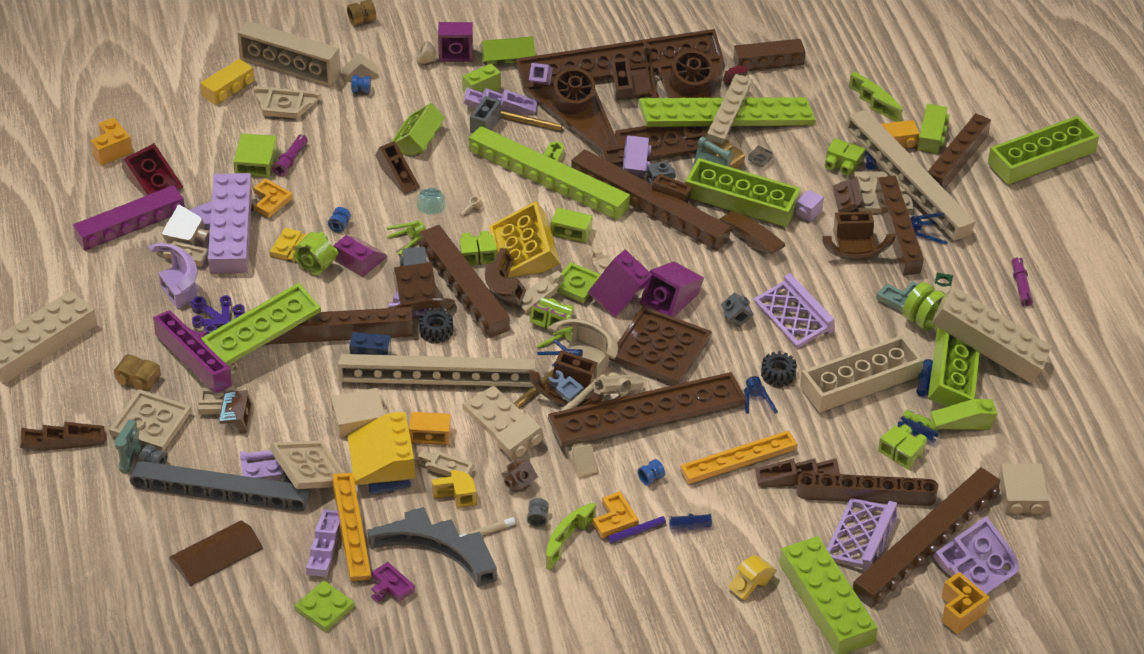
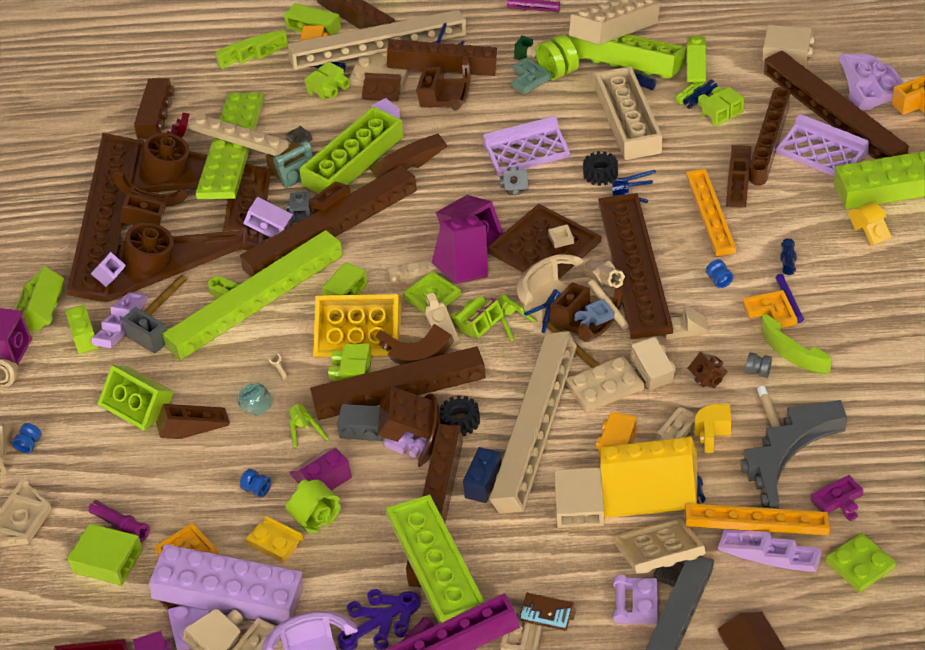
camera: 70 degrees left, 0 degrees up
(662, 349) = (561, 236): none -> tan plate

